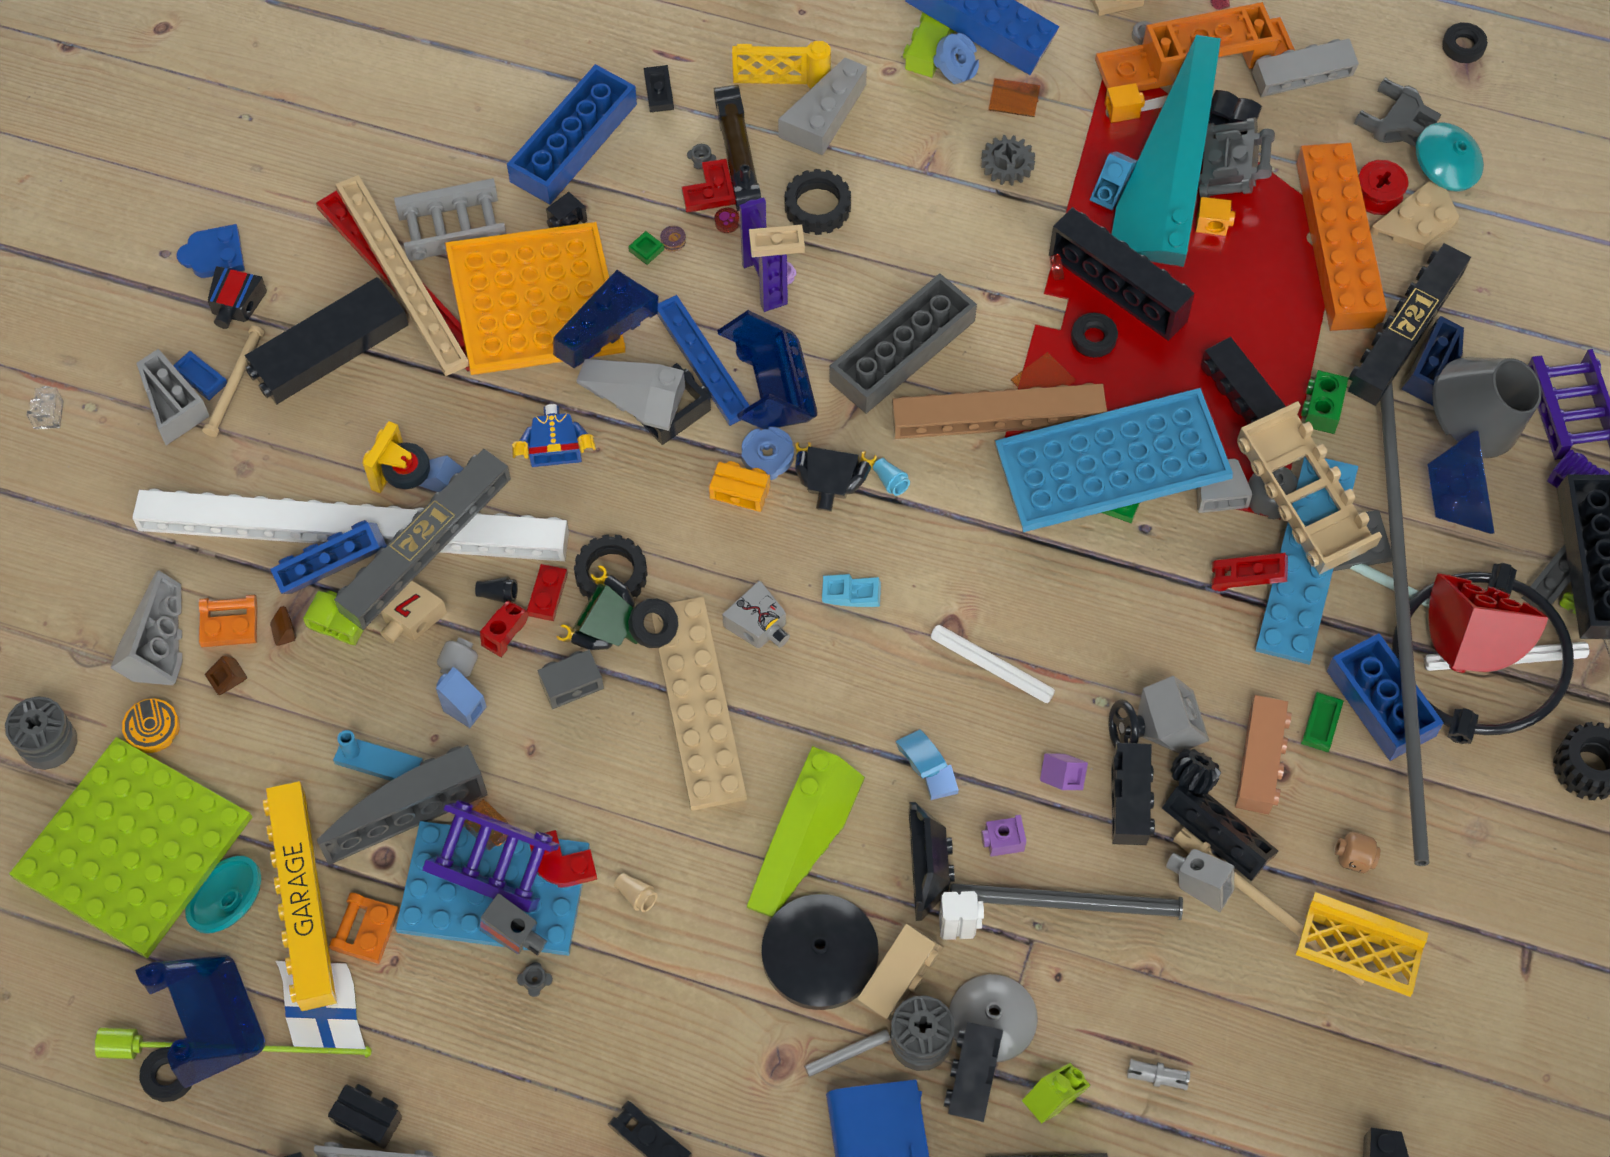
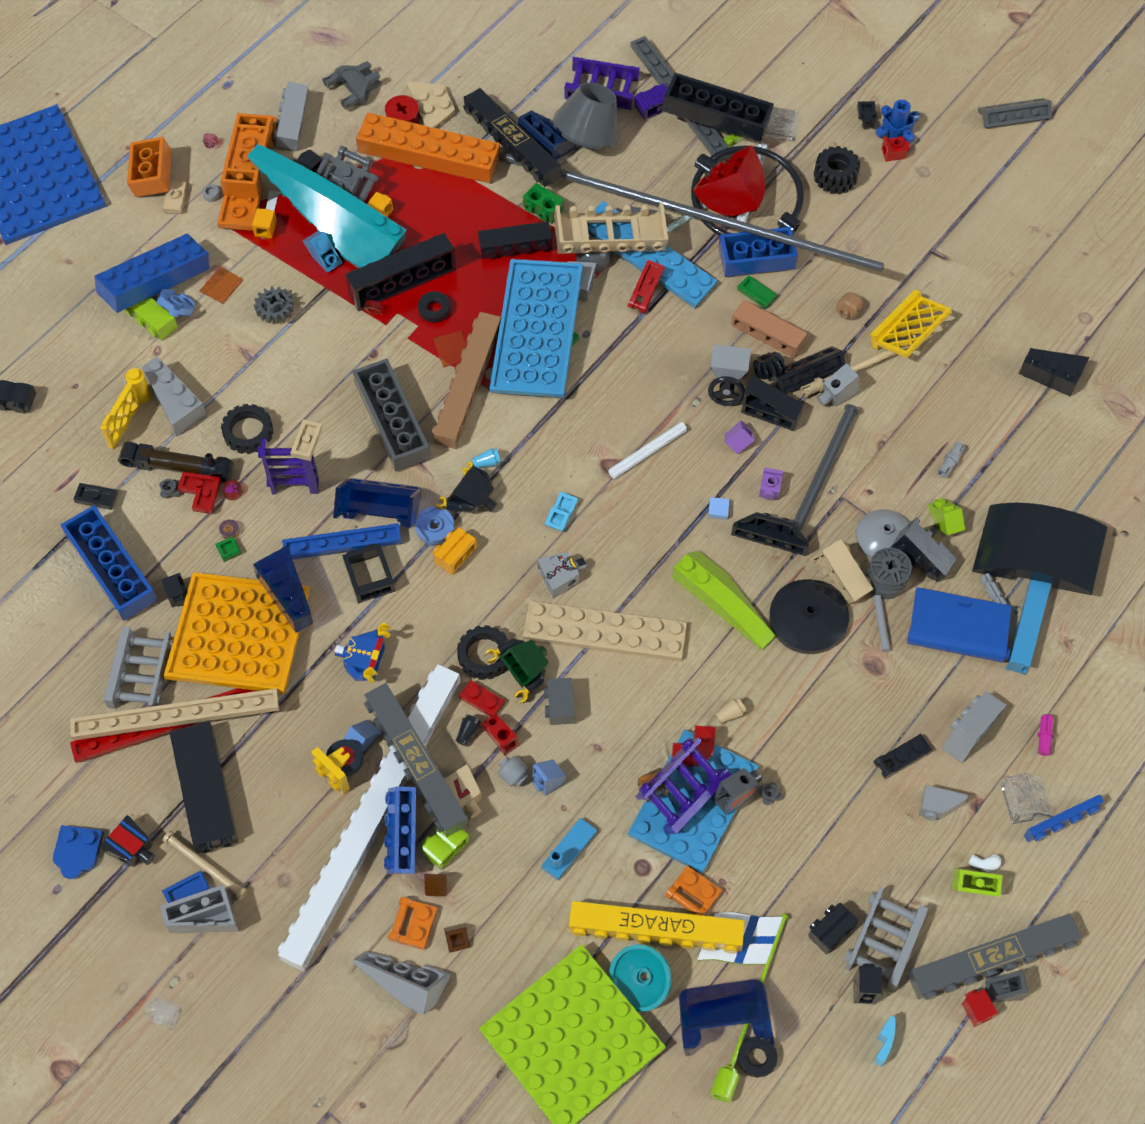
camera: 70 degrees left, 0 degrees up
(41, 733) = (462, 1092): dark grey wheel -> none
(150, 725) = (477, 1001): tile -> none
(404, 803) = (614, 824): dark grey slope -> none
(637, 627) = (539, 641): black tyre -> none
(641, 389) = (359, 580): light grey wedge -> none
(922, 754) = (699, 508): dark azure slope -> none
(960, 915) = (819, 524): white brick -> none
(1449, 156) = (398, 70): teal dish -> none
(1461, 54) = (315, 21): black tyre -> none
(1461, 486) = (635, 157): clear blue wing -> none

